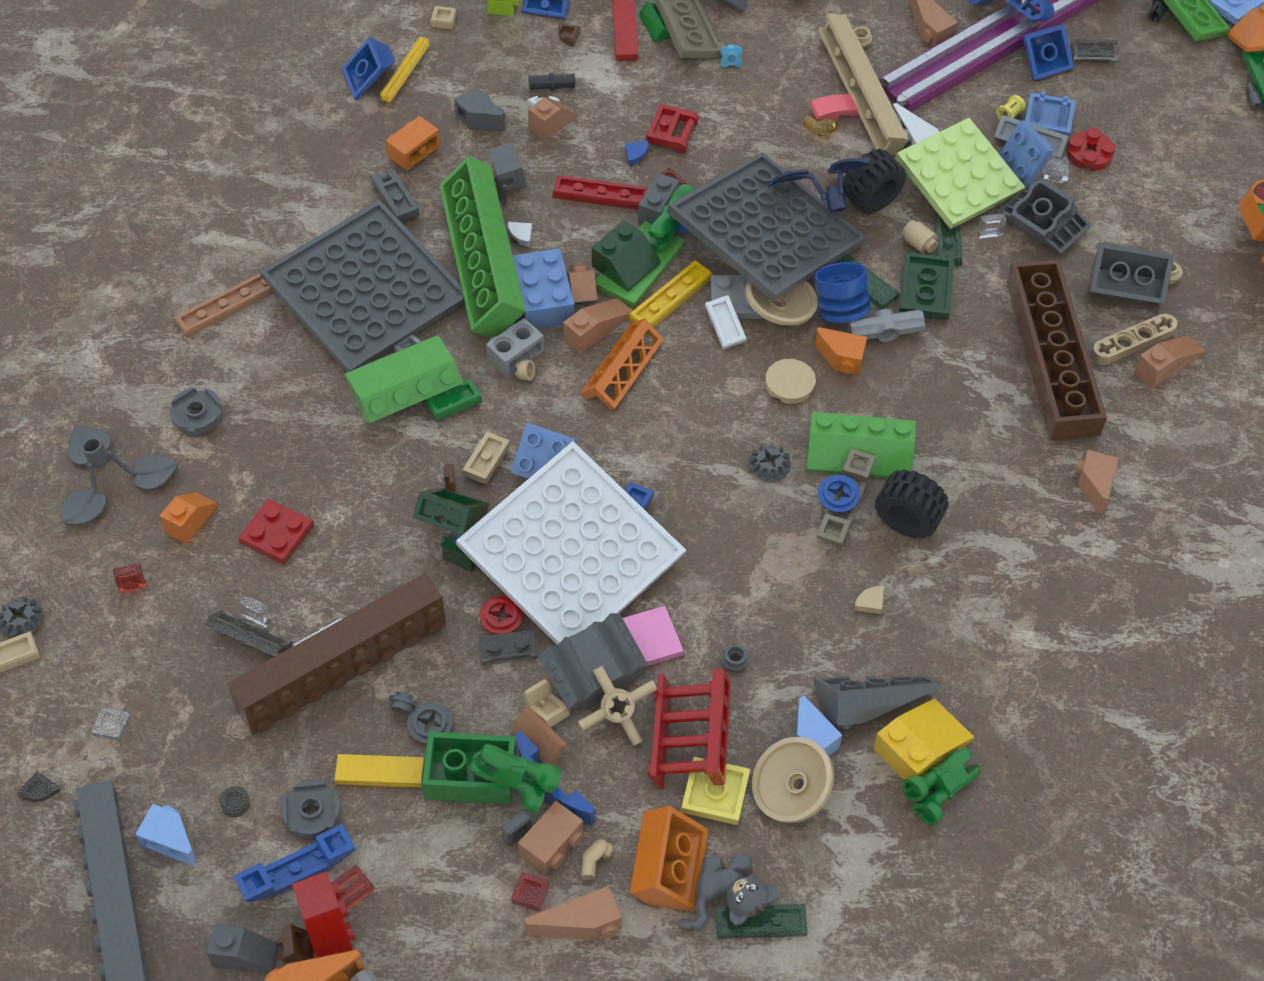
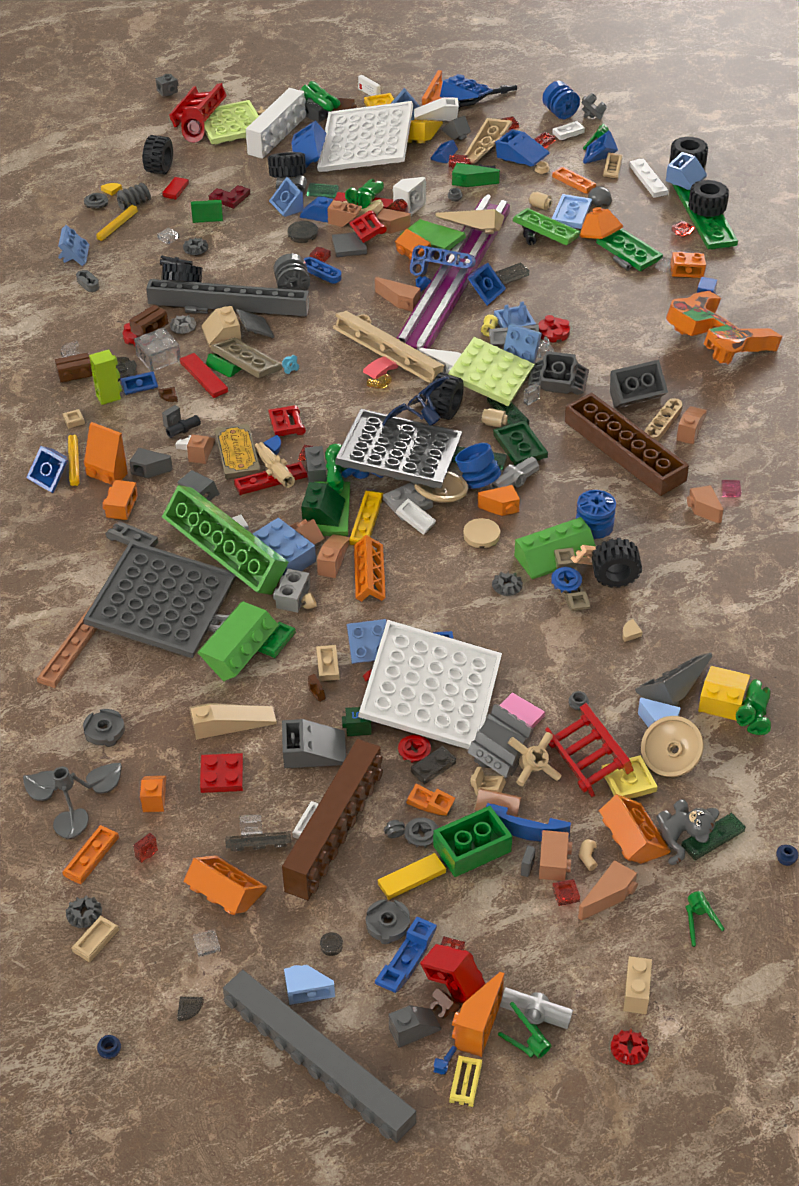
camera: 30 degrees left, 10 degrees down
(75, 554) = (90, 854): none -> orange tile
(176, 665) = (223, 884): none -> orange slope
(330, 467) = (221, 719): none -> tan wedge
(388, 548) = (311, 744): none -> dark grey slope
(429, 81) = (105, 454): none -> orange slope
(458, 510) = (346, 697): dark green window -> none
(470, 690) = (432, 802): none -> orange slope
(508, 771) = (510, 822): green piece -> none
(547, 63) = (171, 416): none -> dark grey plate
(589, 140) = (237, 451): none -> tile
(610, 180) = (275, 465): none -> tan piece
(877, 473) = (587, 552): none -> light nougat tile
(941, 425) = (597, 511): none -> blue wheel
(971, 16) = (422, 282): none -> blue tile
(1150, 473) = (731, 488): none -> clear pink tile

